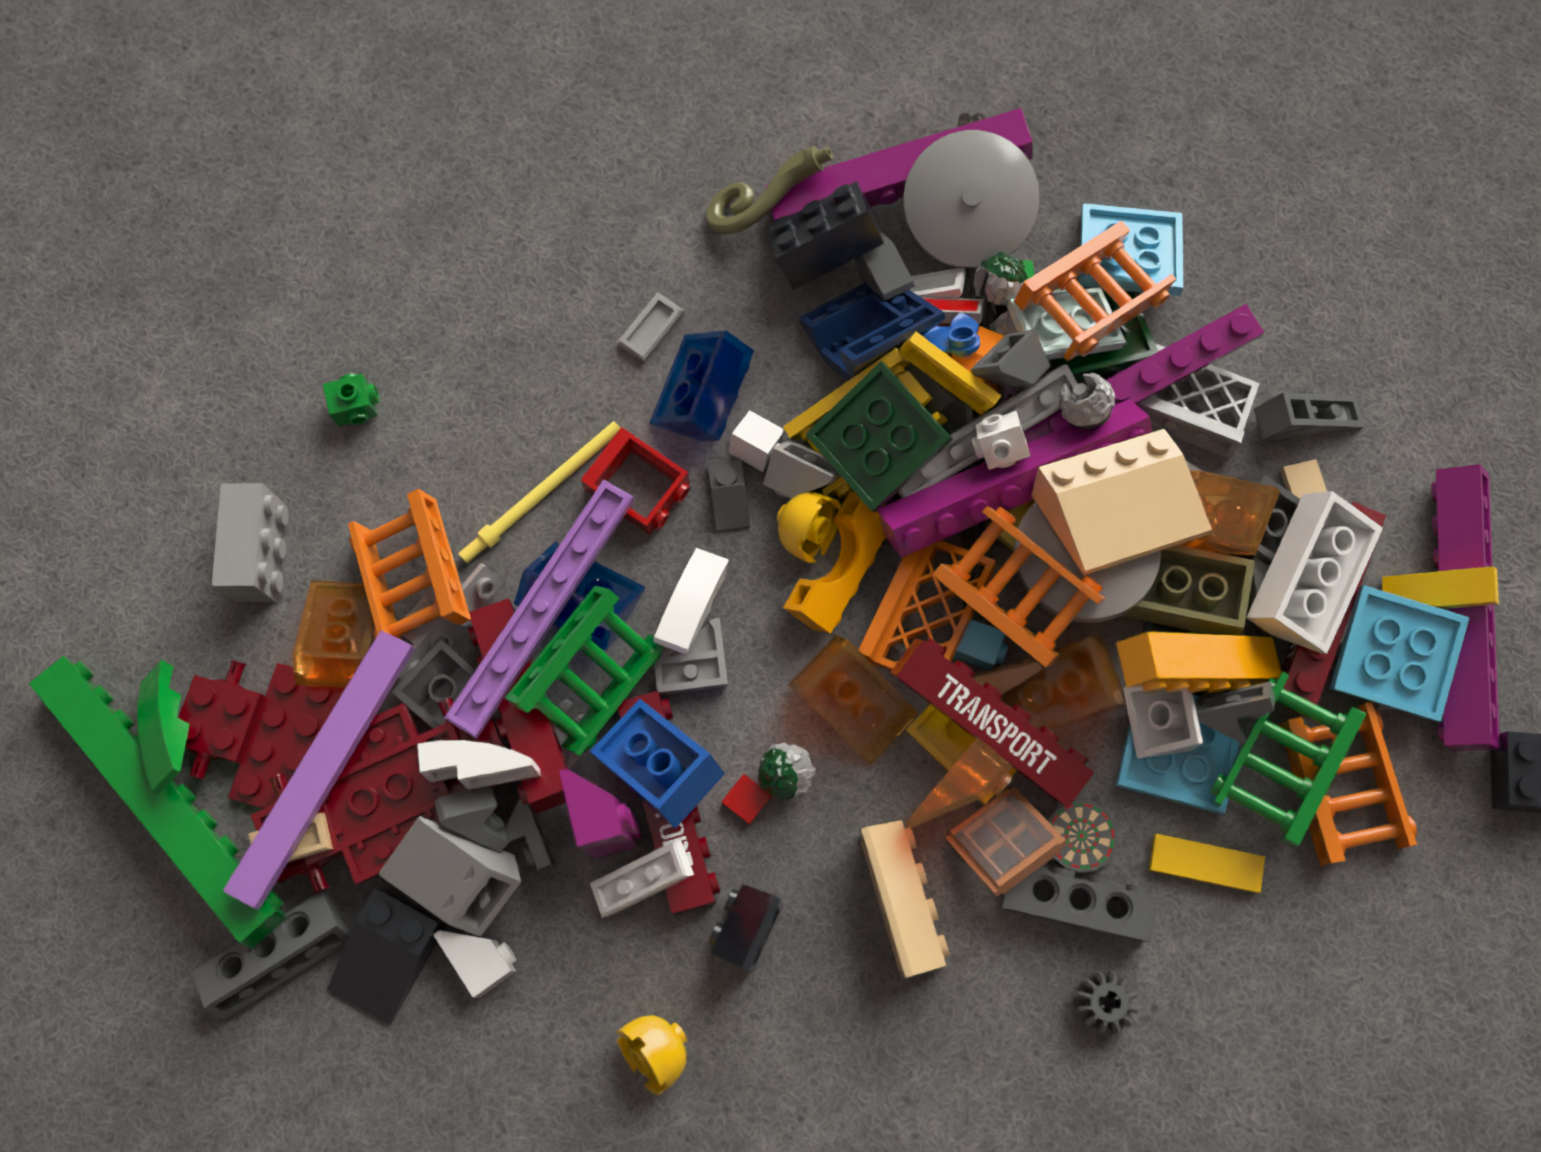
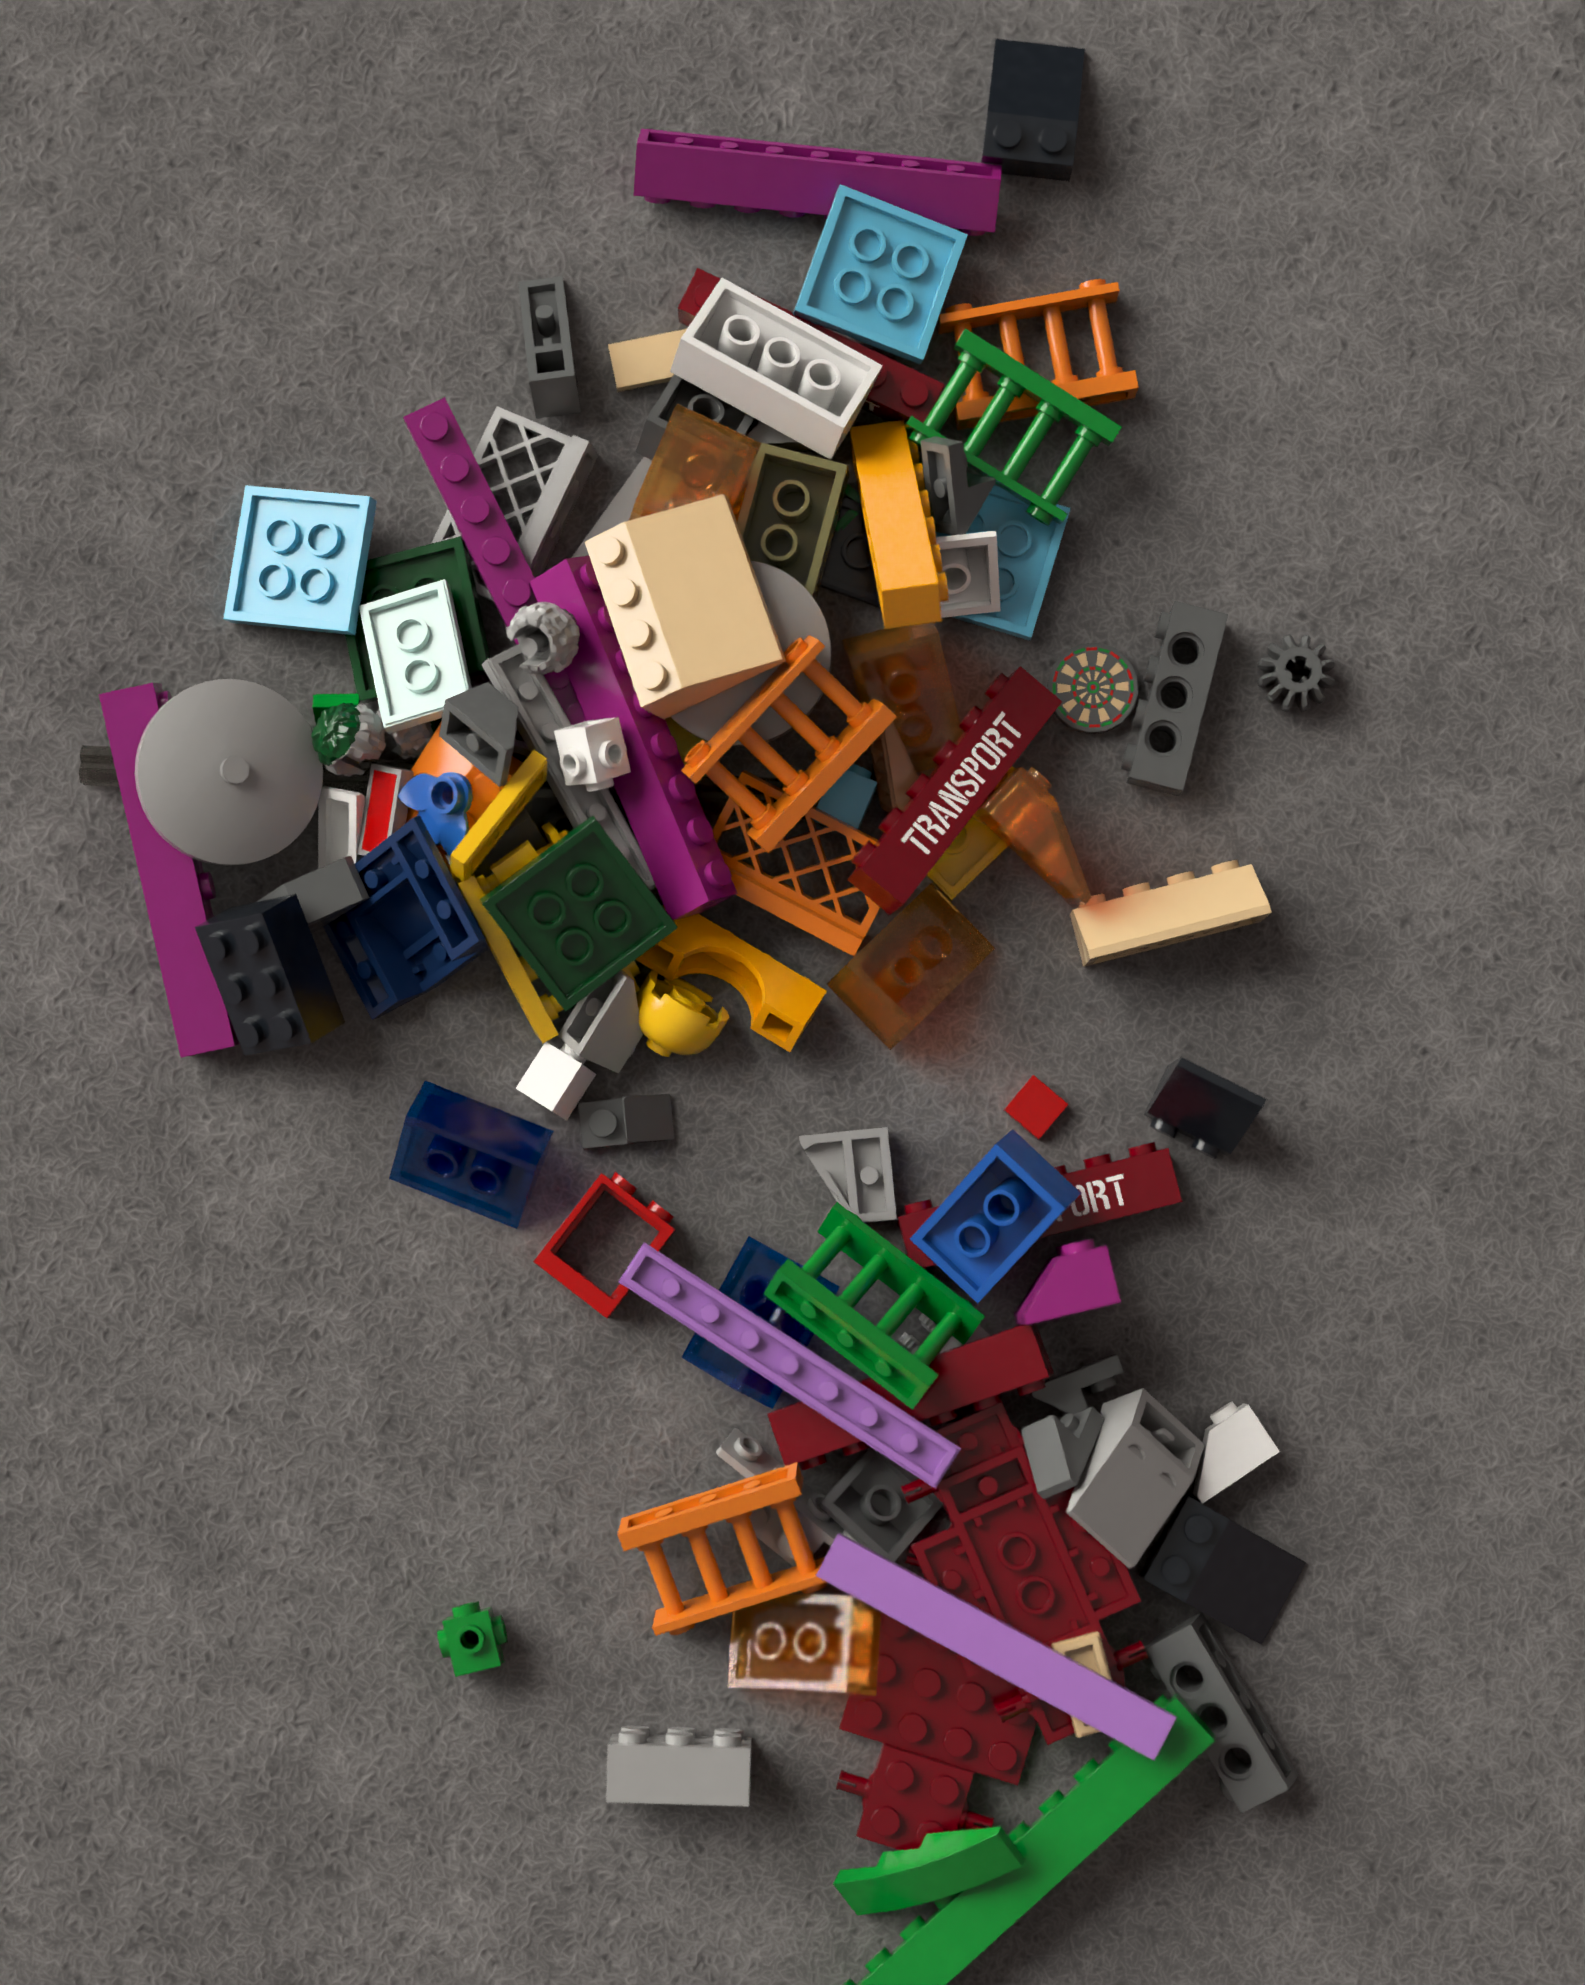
camera: 90 degrees left, 10 degrees up
(474, 763) = (997, 1445): white slope -> none
(490, 535) = (671, 1445): light yellow bar -> none
(641, 878) = (1138, 1239): white tile -> none
(650, 327) = (377, 1224): light grey tile -> none
(655, 1050) = (1344, 1226): yellow cylinder -> none
(691, 601) = (779, 1170): white slope -> none
(746, 213) = (169, 1013): olive plant -> none
(785, 771) = (1005, 1054): dark green piece -> none
(1006, 841) = (1102, 781): clear piece -> none
(1087, 260) = (359, 654): orange fence -> none
(1206, 863) = (1129, 536): yellow tile -> none
(1447, 588) = (797, 210): yellow tile -> none

